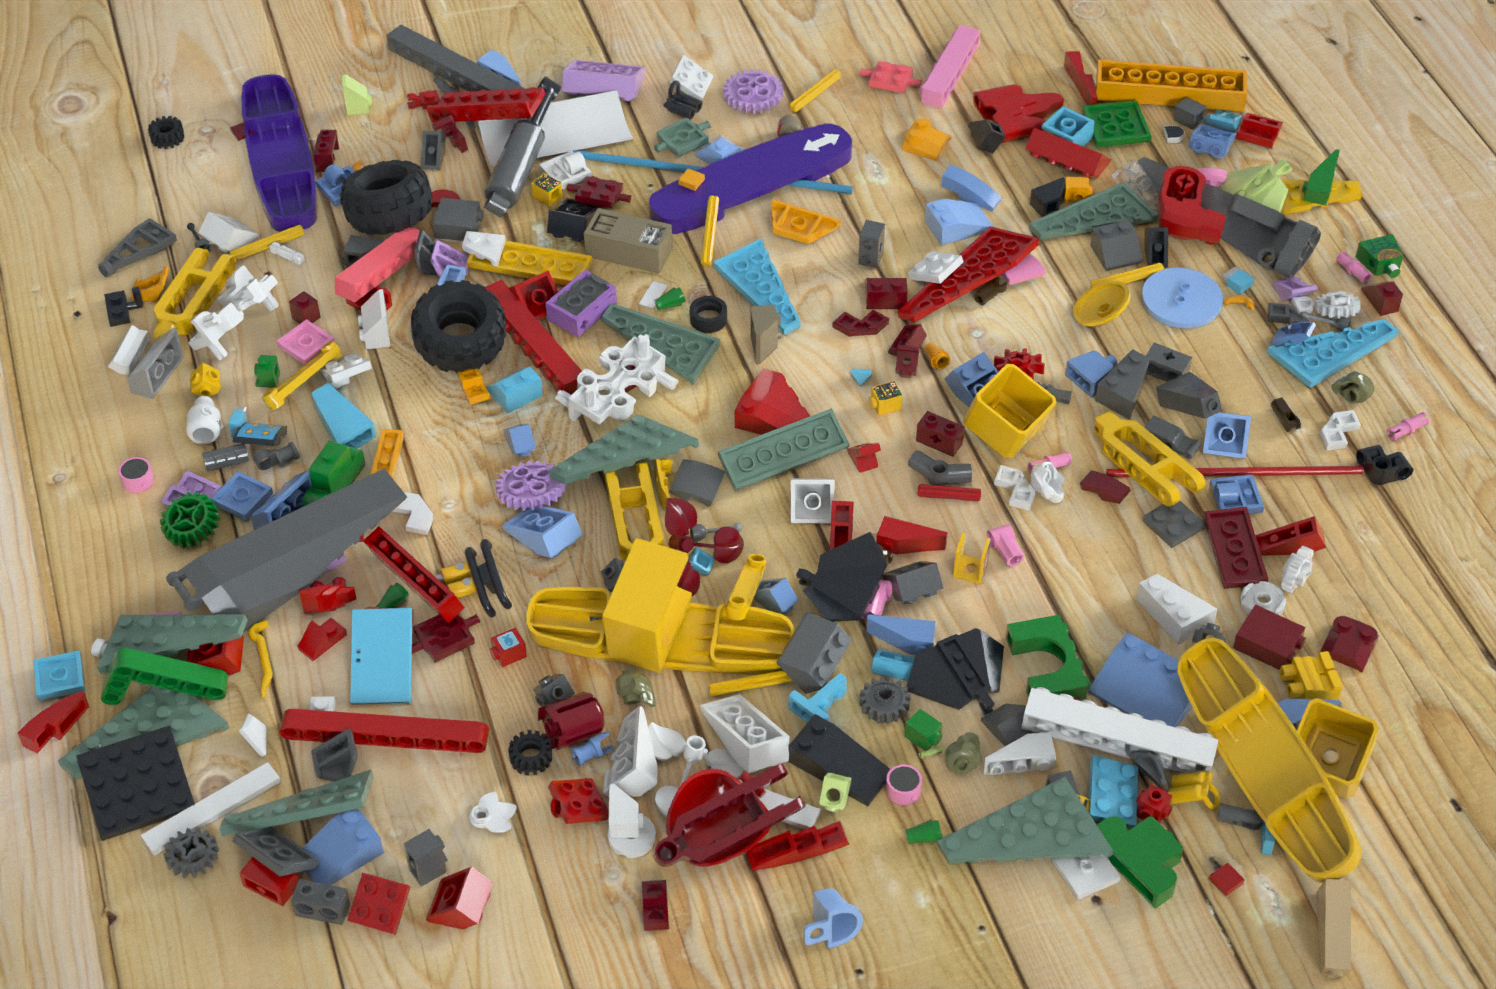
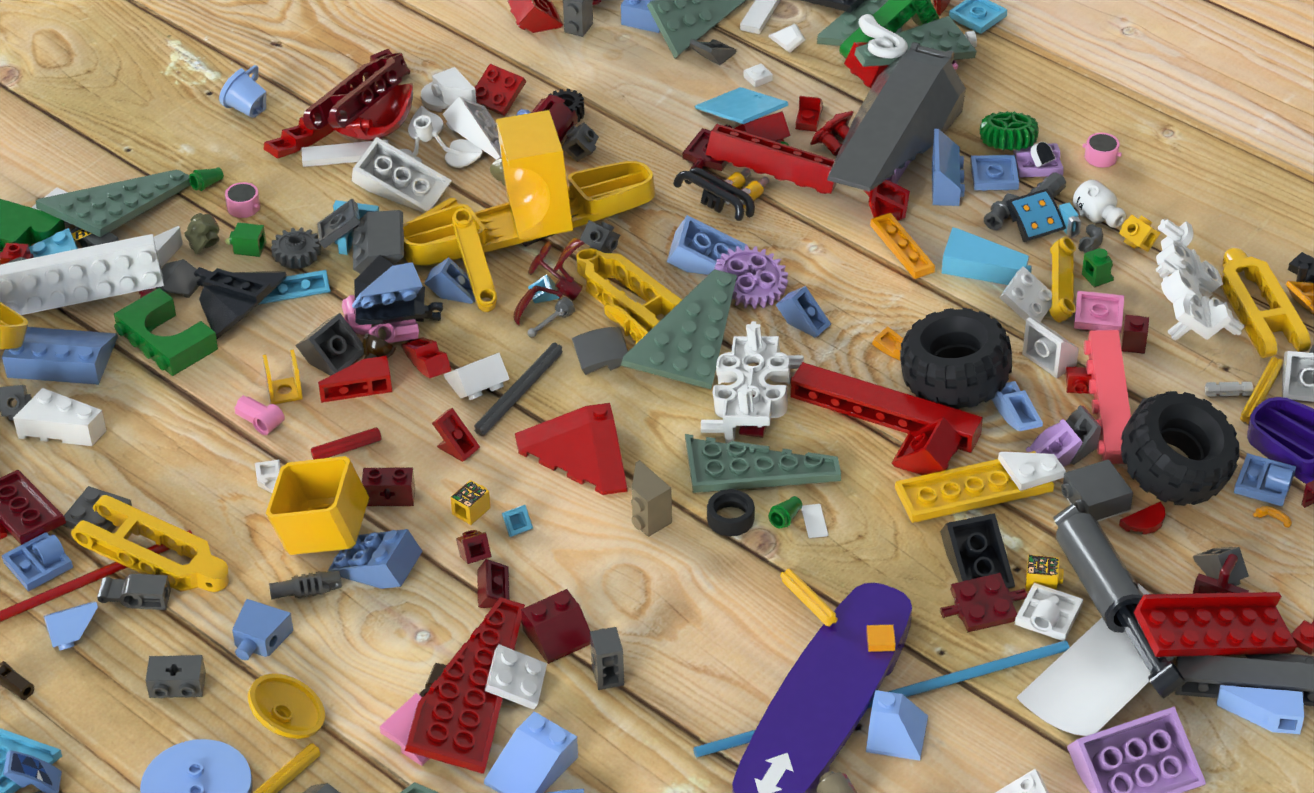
camera: 150 degrees right, 5 degrees down
(129, 351) = (1246, 236): white piece -> none
(156, 365) = (1207, 234): light grey slope -> none
(193, 482) = (1042, 154): none -> black tile
(198, 652) = (884, 39): none -> white plant
(247, 397) = (1094, 241): none -> dark grey piece
(263, 654) = (837, 84): yellow piece -> none
(333, 470) = (926, 204): green brick -> none
(386, 730) = (689, 76): red beam -> none
(420, 515) = (825, 222): white tile -> none
(495, 814) = (559, 66): white plate -> none
(508, 647) = (650, 155): red brick -> none
(516, 389) = (856, 353): medium azure slope -> none
(581, 303) = (868, 453): piece -> none
(628, 240) = (887, 544): dark tan piece -> none
(681, 103) = (1001, 771): black piece -> none
(682, 137) = (959, 723): sand green plate -> none
(758, 281) = (717, 579): medium azure wing -> none
(783, 449) = (536, 403): sand green plate -> none
(783, 480) = (518, 389): none -> dark grey axle
(800, 223) = (720, 670): light orange wing -> none
(827, 749) = (308, 193): black slope -> none
(837, 688) = (338, 223): none -> dark grey tile
(840, 783) = (294, 165): yellowish green brick -> none
(843, 578) = (395, 284): none -> light blue slope
(869, 325) = (566, 576): dark red tile -> none
(903, 633) = (310, 301): medium blue slope -> none
(938, 357) = (446, 574): light orange cone -> none
(938, 470) = (368, 451): dark grey piece -> none
(1023, 360) = (349, 605): red gear -> none
(1047, 481) = (246, 482): white hair -> none
(1057, 460) = (255, 513): bright pink pin -> none
(1107, 486) = (186, 511): dark red slope -> none
(1124, 384) = (212, 626): dark grey wedge -> none
(1189, 396) = (124, 619): dark grey slope -> none

